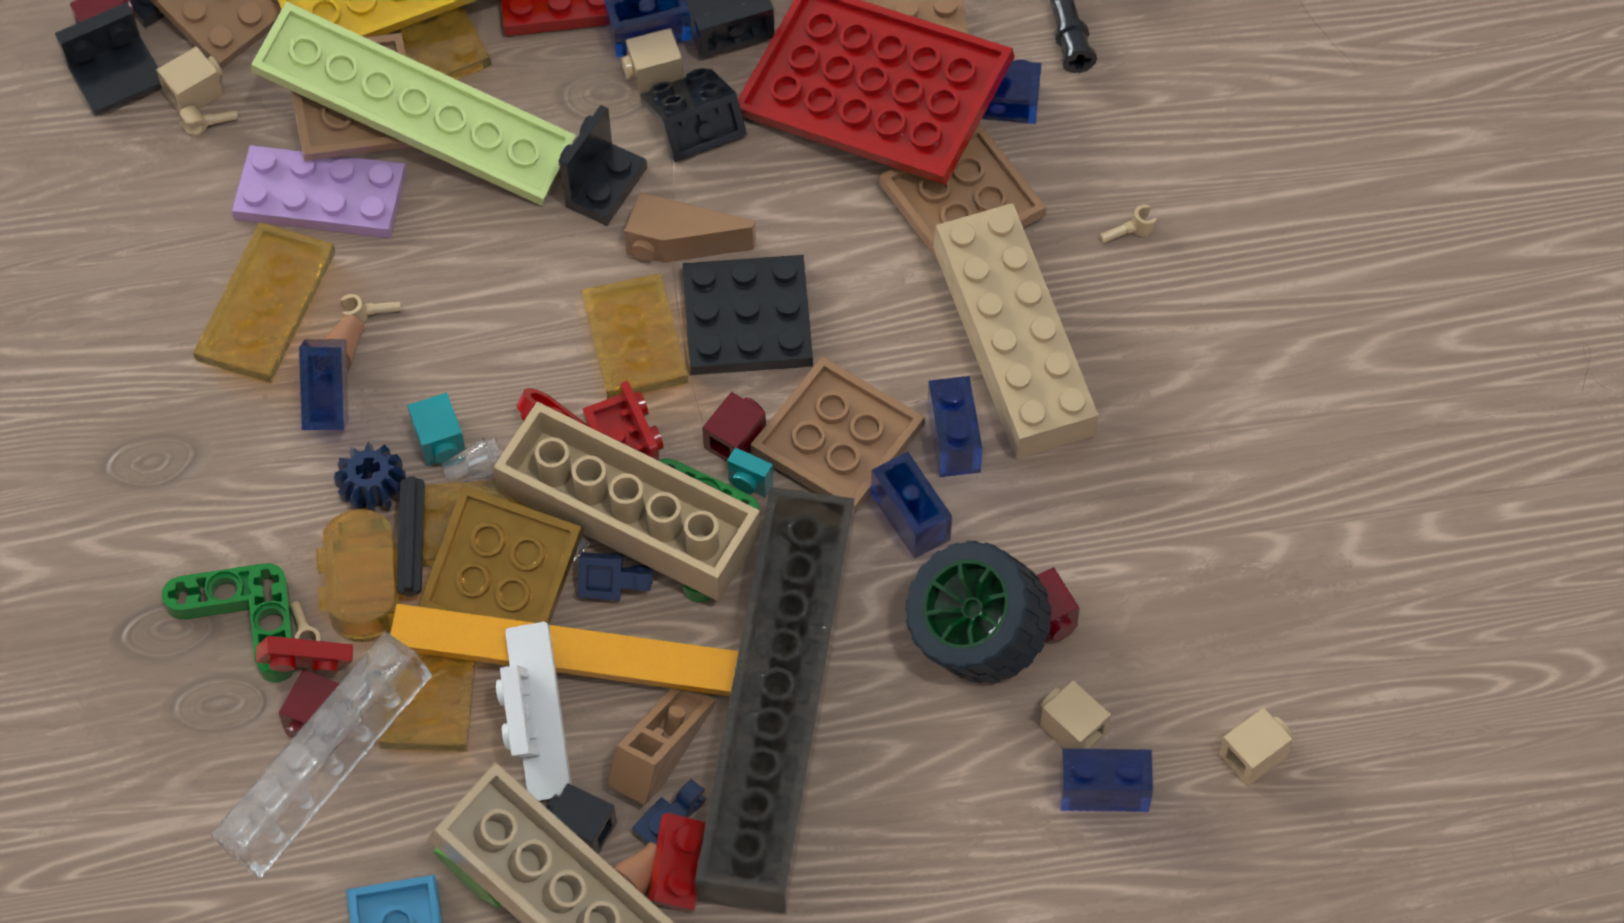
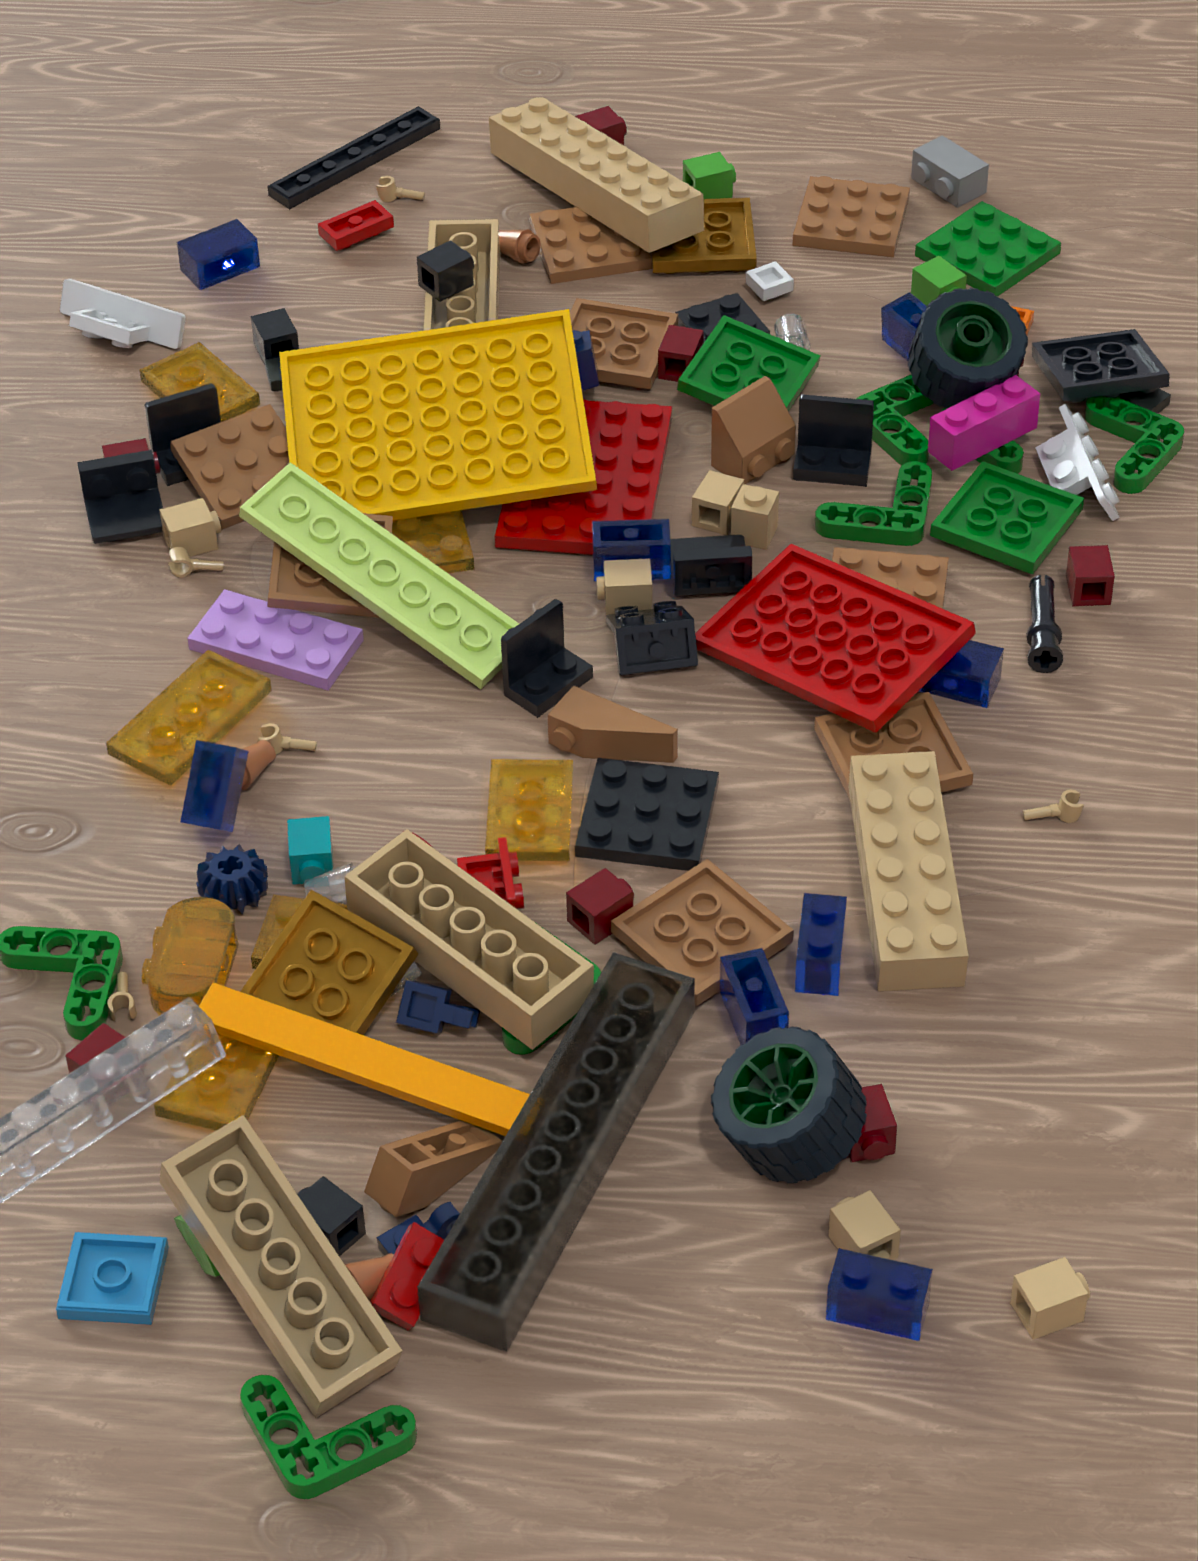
camera: 15 degrees right, 15 degrees down
(288, 653) = (95, 1005): red plate -> none
(410, 536) = (251, 934): black axle -> none
(534, 710) = (312, 1101): white bracket -> none
(750, 473) = (600, 941): teal plate -> none

